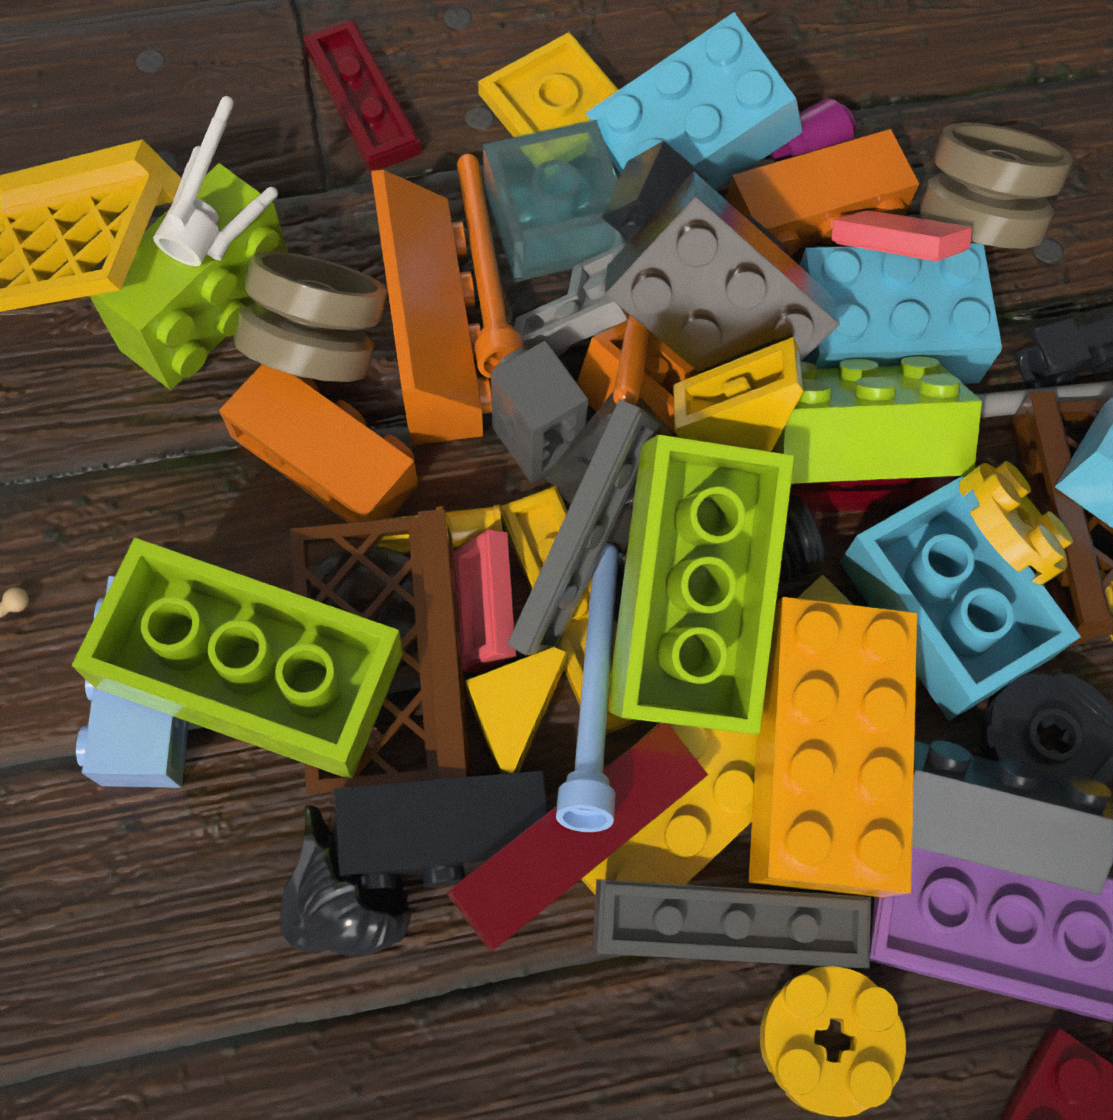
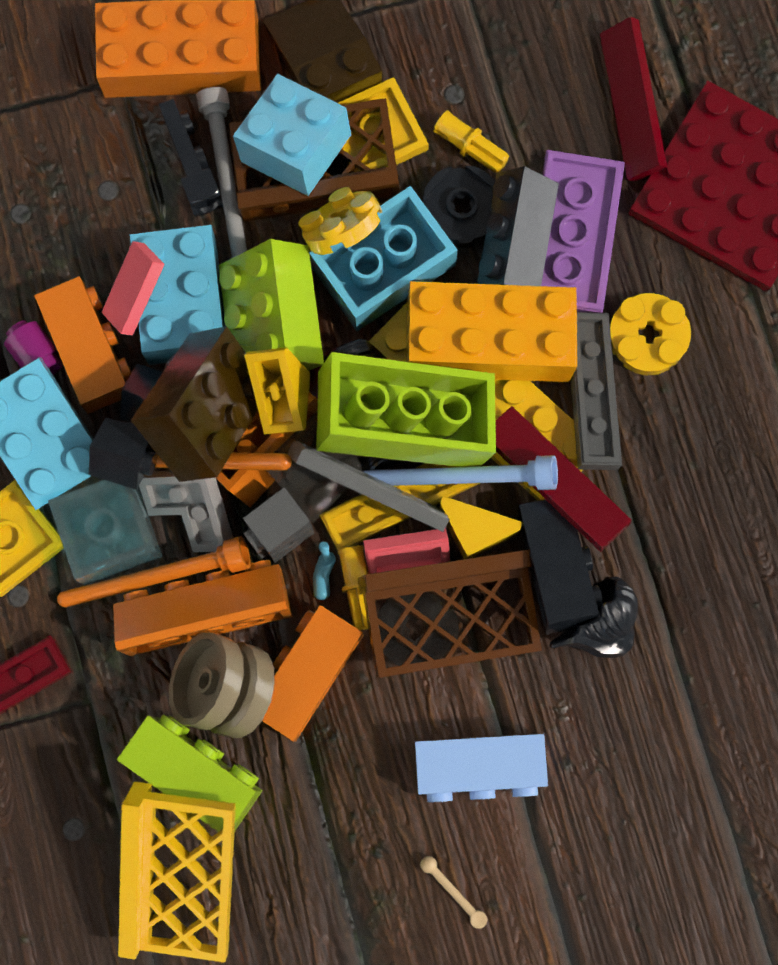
camera: 90 degrees left, 10 degrees up
(190, 224) = (181, 764): white plant -> none
(241, 657) = (477, 687): lime brick -> none
(470, 486) = (322, 571): none -> medium azure piece
(996, 183) = (81, 225): dark tan wheel -> none

